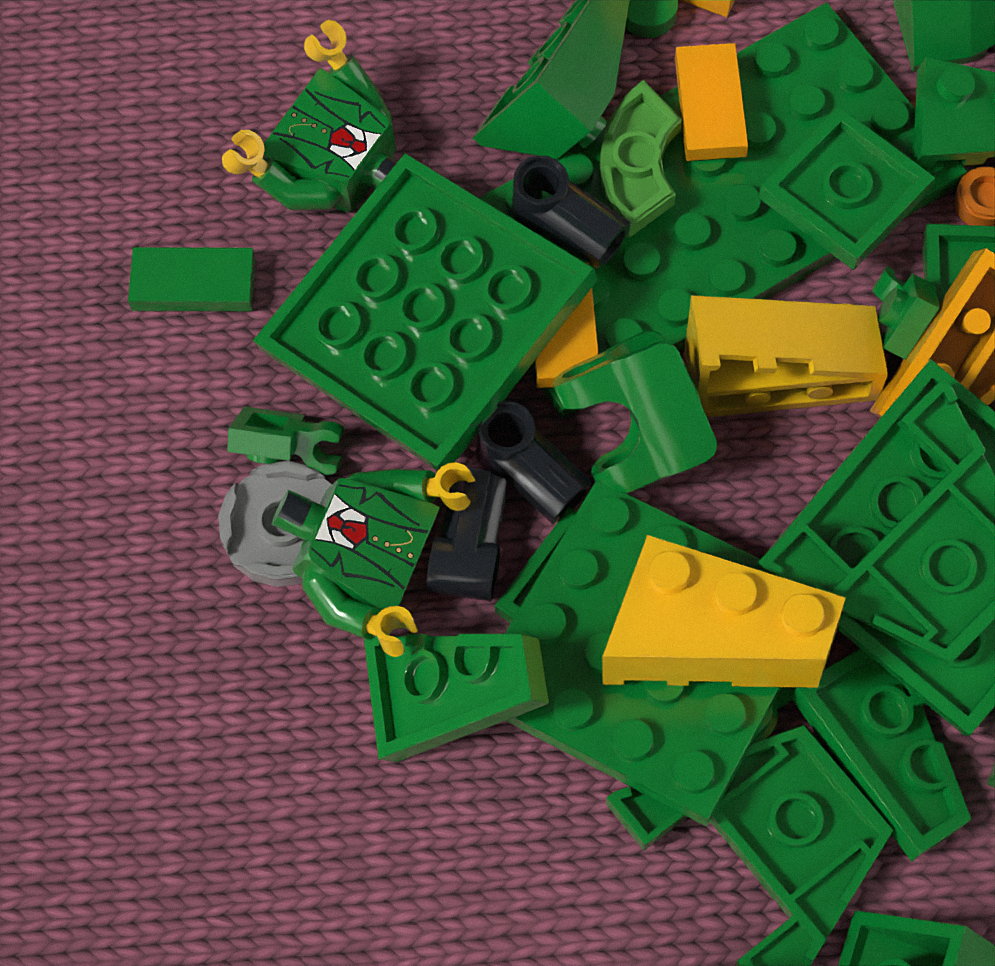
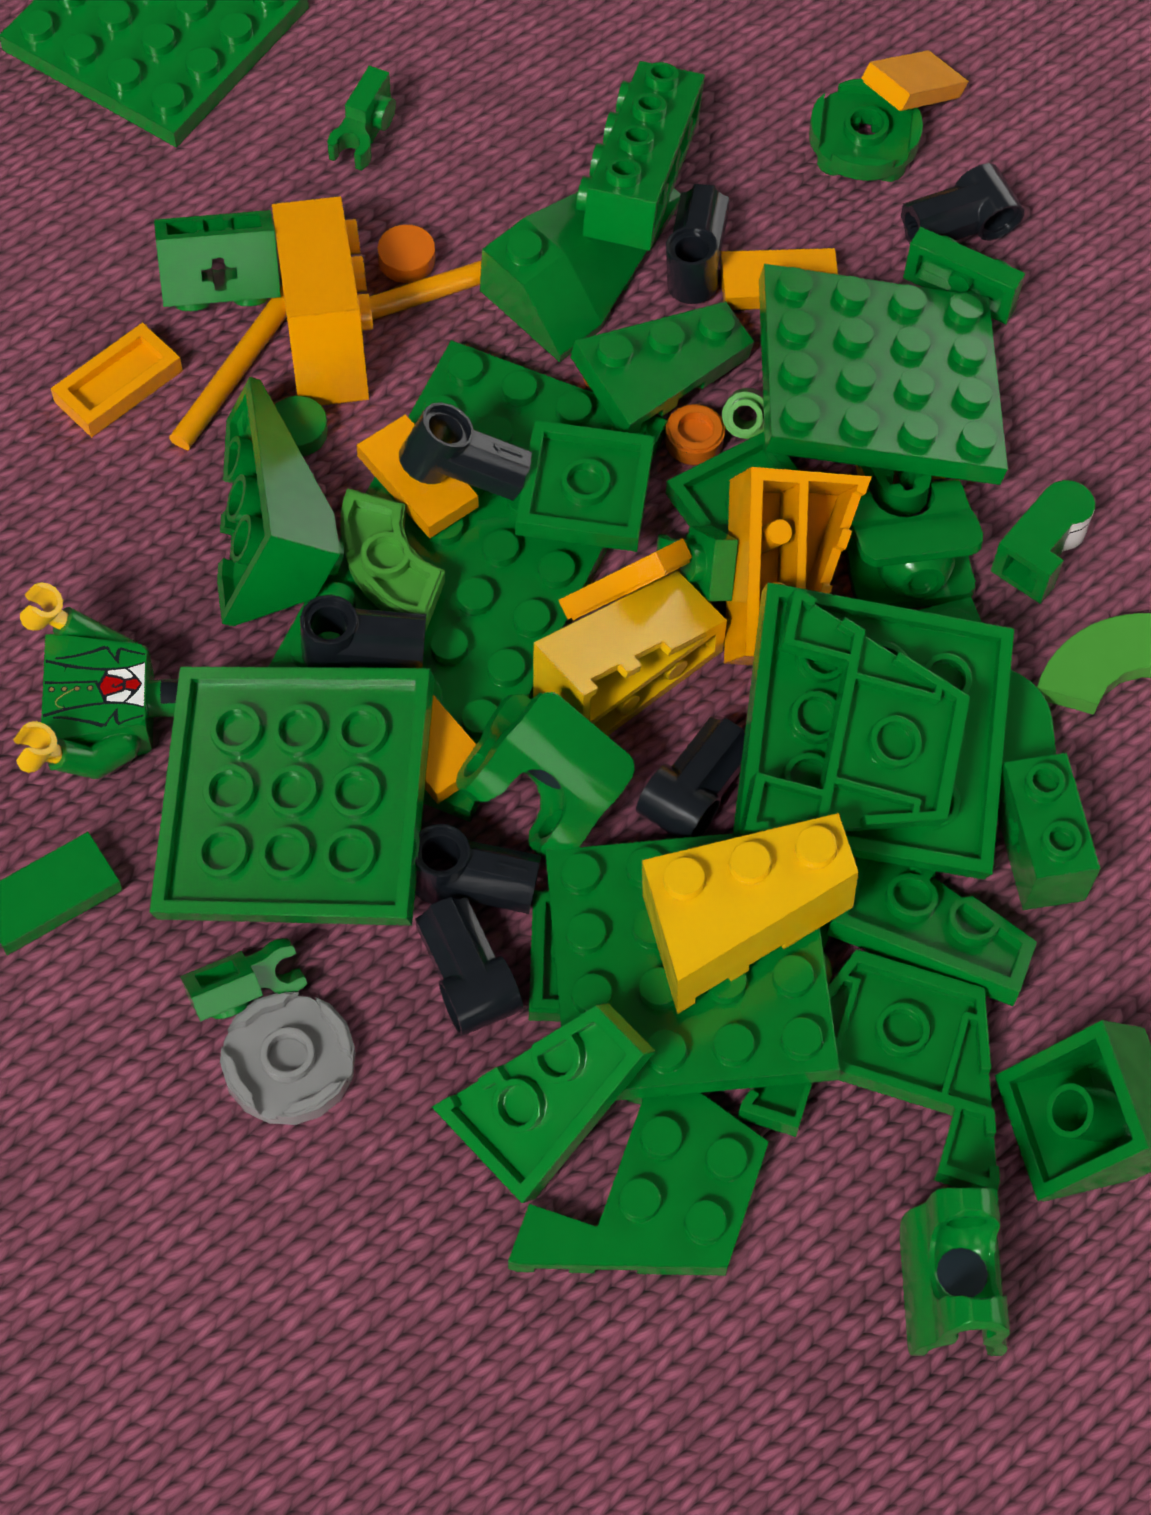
camera: 40 degrees left, 5 degrees down
(366, 545) = (387, 1025): green torso -> none
(500, 838) = (671, 1201): none -> green wing
(743, 88) = (447, 446): none -> black piece
(754, 504) = (689, 792): none -> black piece
(824, 288) = (626, 580): none -> light orange tile

